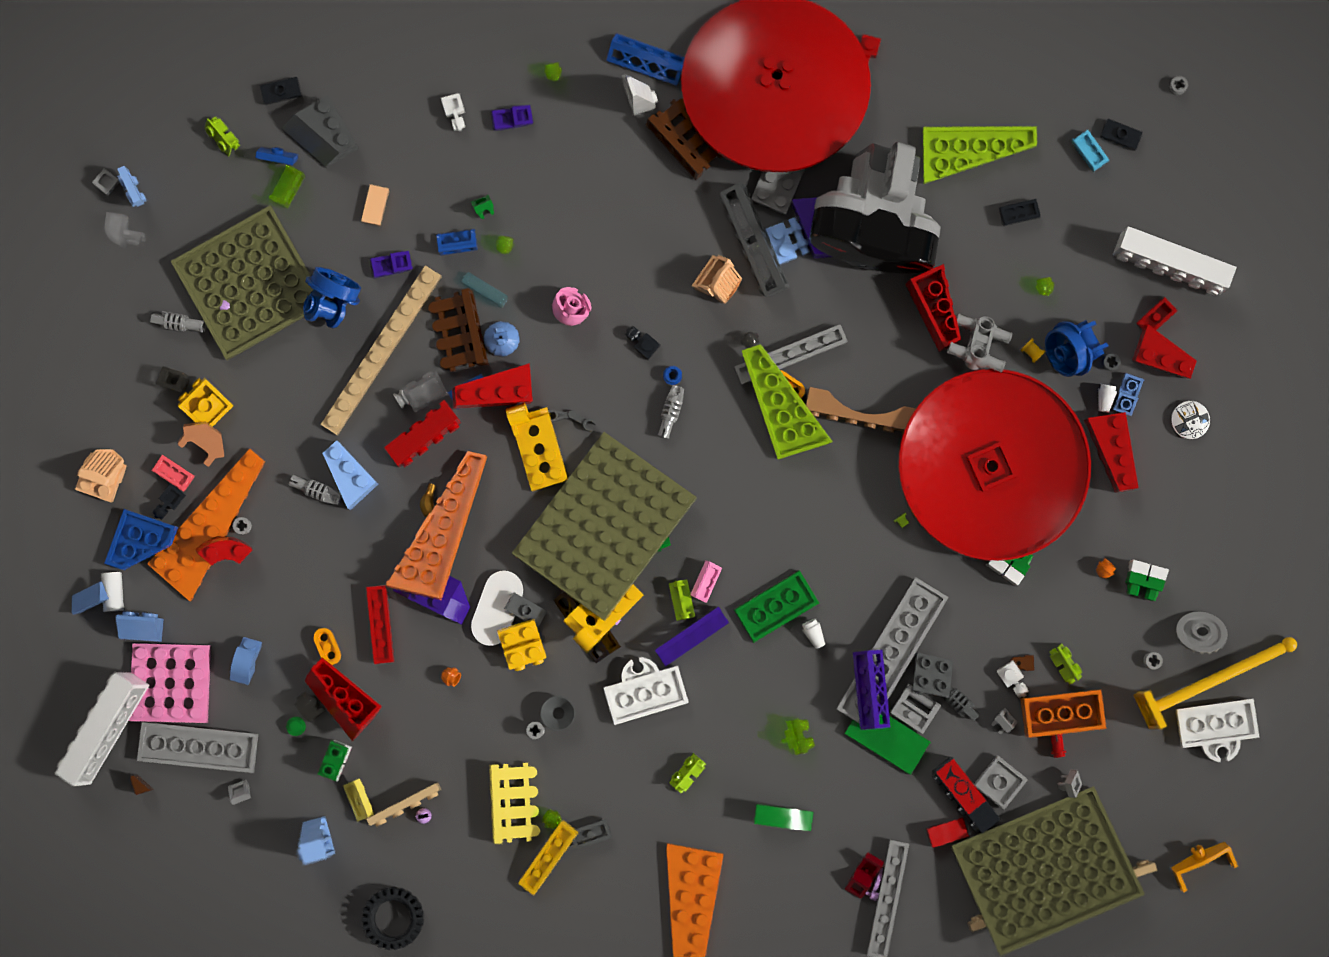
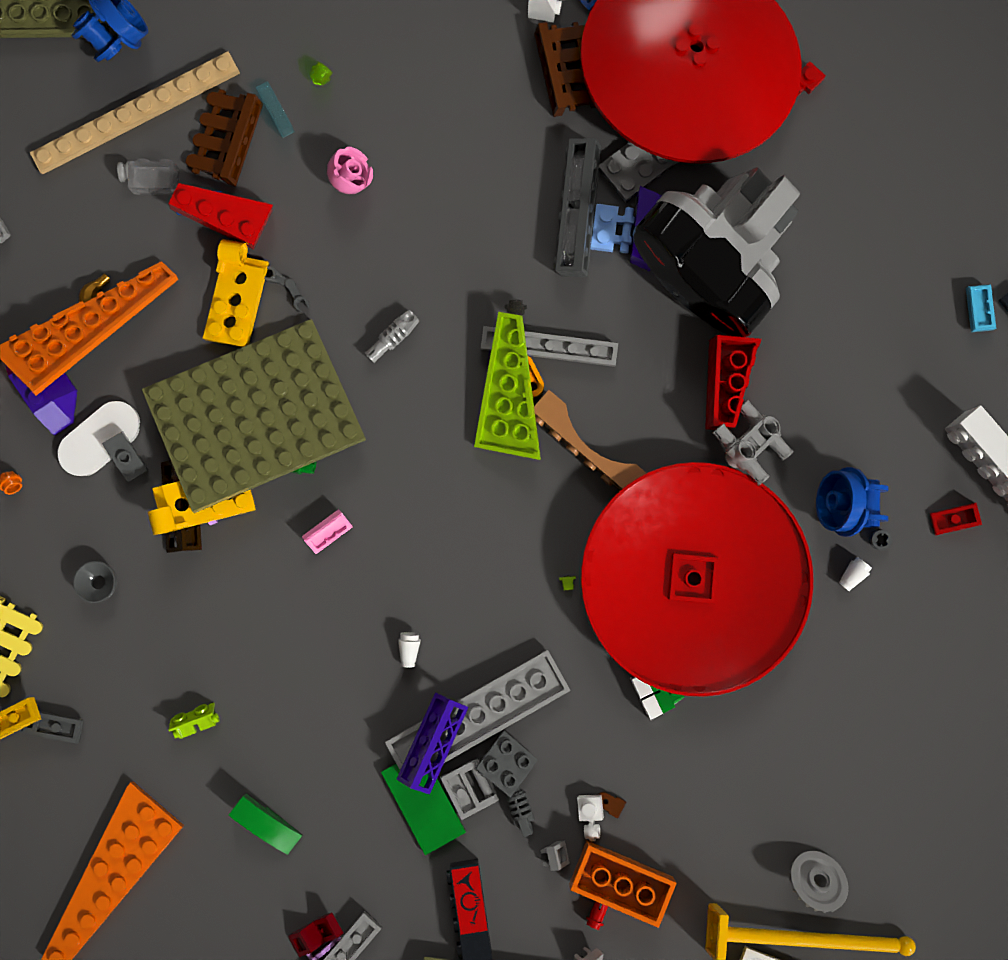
camera: 30 degrees right, 0 degrees up
(348, 474) = (26, 218): light blue wedge -> none
(391, 264) = (195, 32): dark purple slope -> none
(423, 434) = (125, 218): red wedge -> none
(457, 242) = (273, 46): blue hinge -> none
(482, 204) = (318, 21): green tile -> none
(503, 346) = (263, 175): medium blue hair -> none
(522, 645) = (100, 491): yellow plate -> none
(530, 733) = (55, 586): light grey bush -> none
(551, 819) = (26, 688): clear neon green plate -> none
(645, 692) = (199, 610): white plate -> none
(646, 345) = (406, 254): black plate -> none
(674, 369) = (415, 294): blue plate -> none
(681, 600) = (291, 536): lime hinge -> none
(692, 636) = (280, 580): dark purple fence -> none
(718, 279) = (518, 228): light nougat piece -> none
(776, 606) = (386, 598): green tile -> none
(795, 736) = (328, 758): clear neon green hips -> none
(947, 832) = (428, 938): red slope -> none
(962, 148) = (848, 233): lime wing -> none
(1000, 782) = (515, 917): light grey plate -> none
(1019, 212) = (870, 331): black plate -> none
(1032, 350) = (804, 481): yellow bush -> none
(1045, 286) = (855, 422): clear neon green plate -> none
(1063, 656) = (656, 840): lime hinge -> none
(1105, 569) = (753, 754): orange plate -> none
(1114, 448) = (834, 633): red wedge -> none
(1128, 394) = (880, 583): medium blue slope -> none
(1147, 577) = (793, 787): green hips -> none
(1158, 657) = (749, 871): light grey bush -> none
(1162, 354) = (940, 561): red wedge -> none
(1190, 420) = (931, 647): white dish -> none

